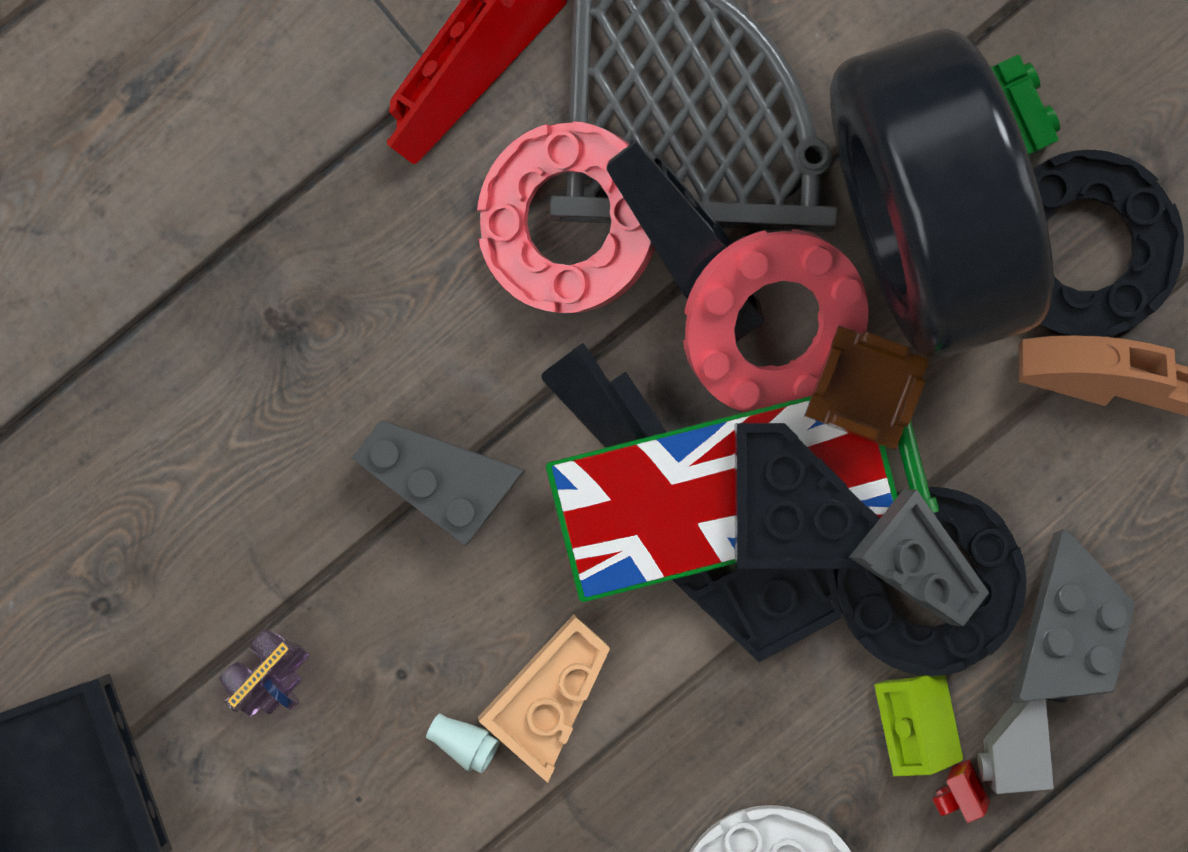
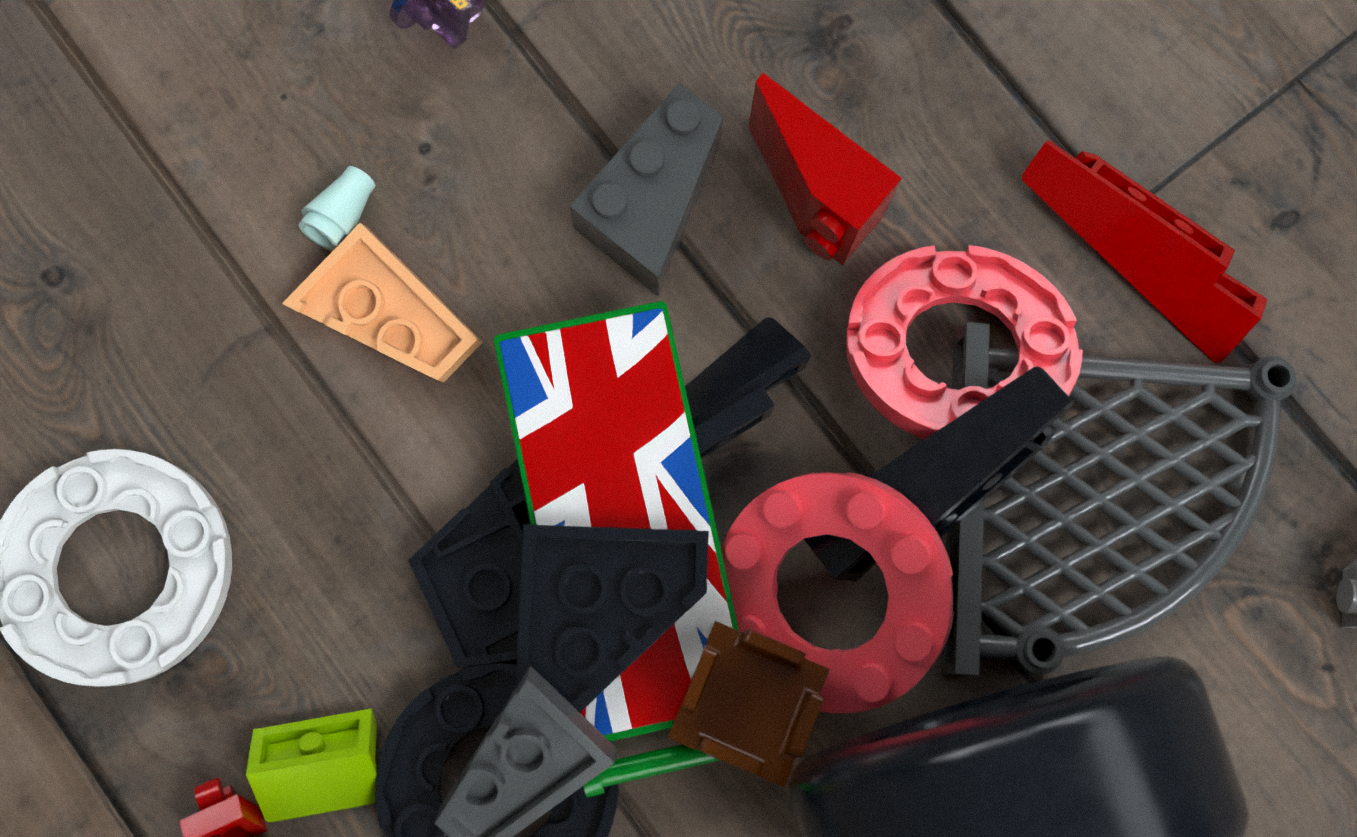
camera: 90 degrees right, 10 degrees down
(434, 332) = (823, 175): none -> red slope

